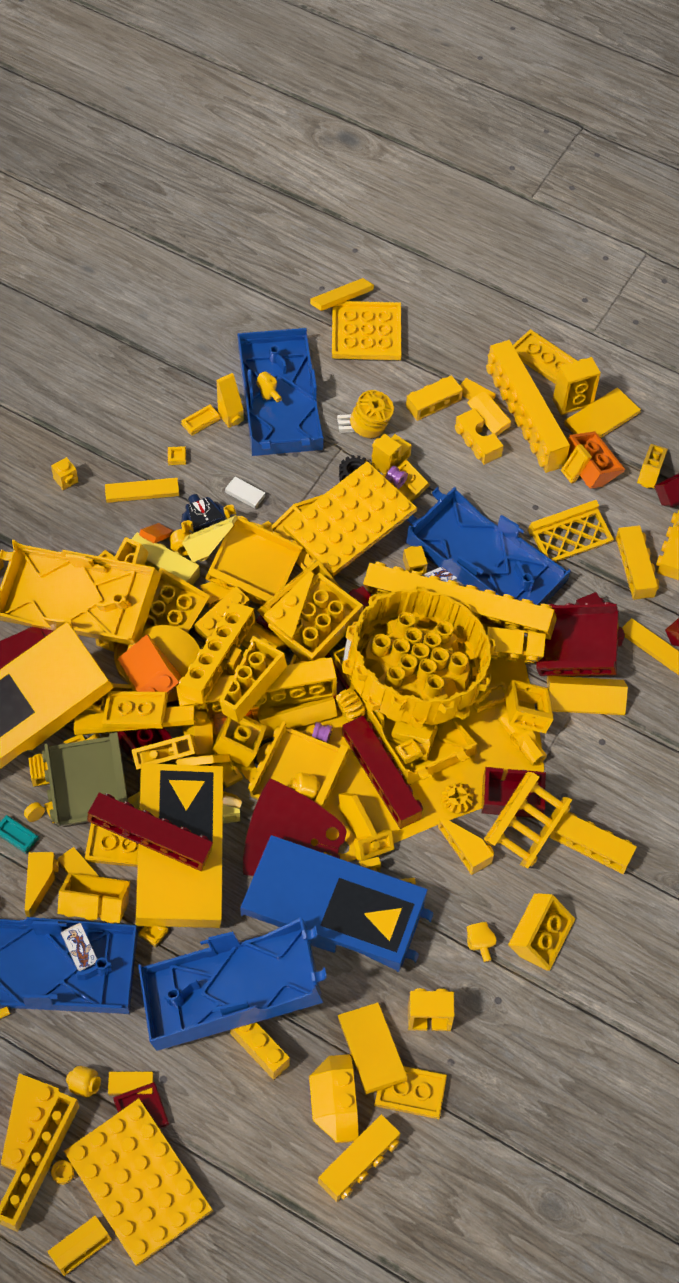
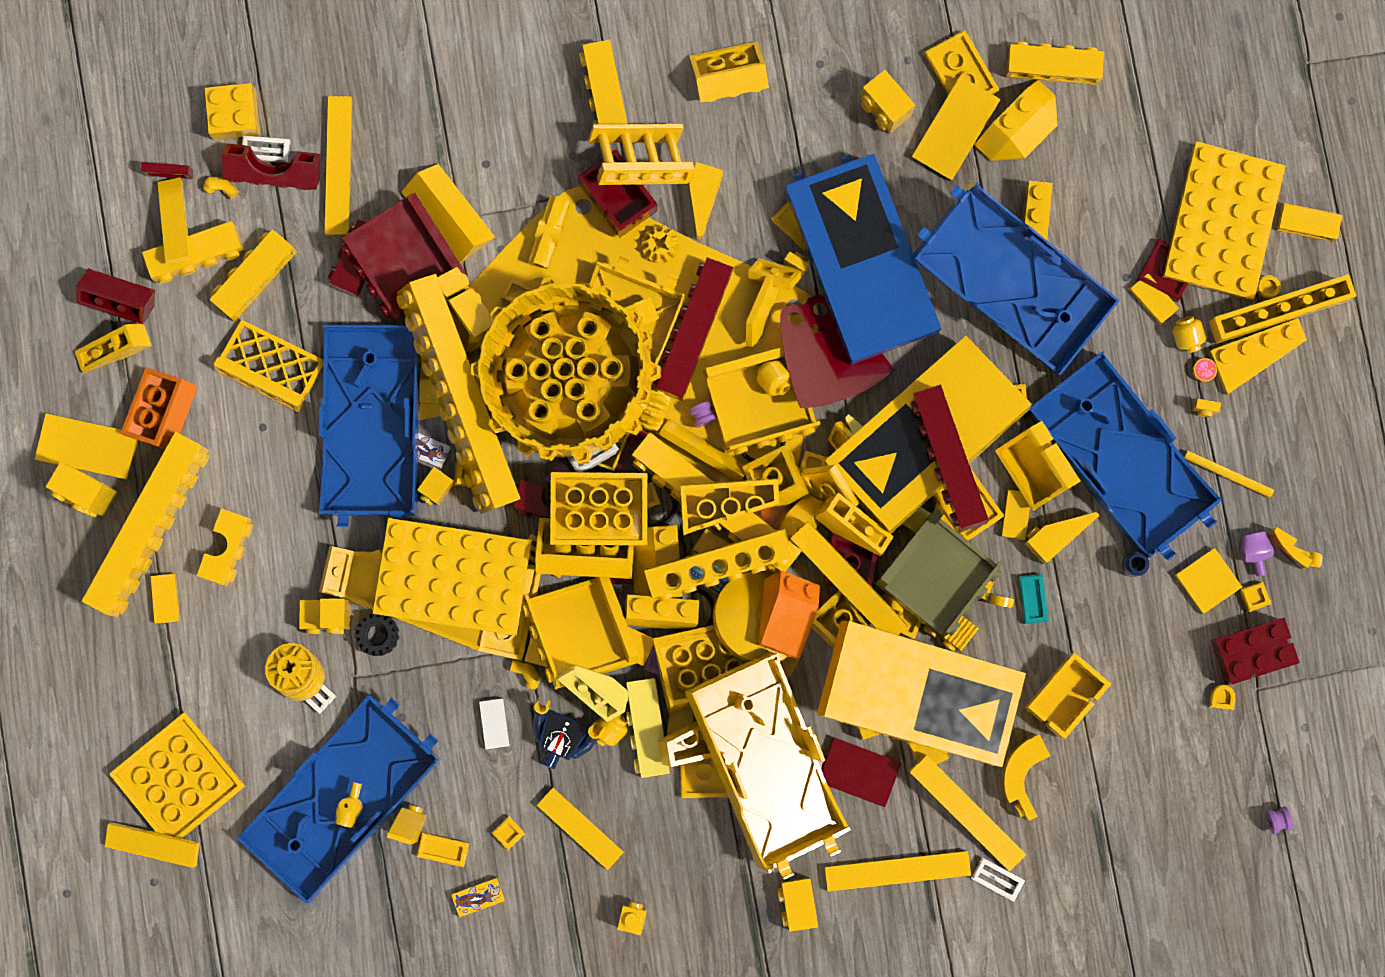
camera: 130 degrees left, 25 degrees up
(24, 1048) = (1206, 408): none -> yellow plate
(50, 1073) = (1204, 370): none -> tile
(79, 946) = (1090, 436): tile -> none
(134, 709) = (842, 586): yellow tile -> none
(155, 533) = (623, 760): orange tile -> none
(157, 416) = (478, 897): none -> tile
(234, 660) = (711, 543): yellow tile -> none
(287, 611) = (617, 536): yellow wing -> none
(396, 477) = (352, 583): medium lavender wheel -> none
(409, 751) = (657, 315): yellow tile -> none
(434, 397) = (211, 634): yellow brick -> none
(481, 938) = (780, 117): yellow piece -> none
(490, 412) = (186, 559): yellow piece -> none
(535, 720) = (491, 246): yellow window -> none
(541, 355) = (54, 563): yellow tile -> none
(576, 463) = (182, 418): yellow tile -> none

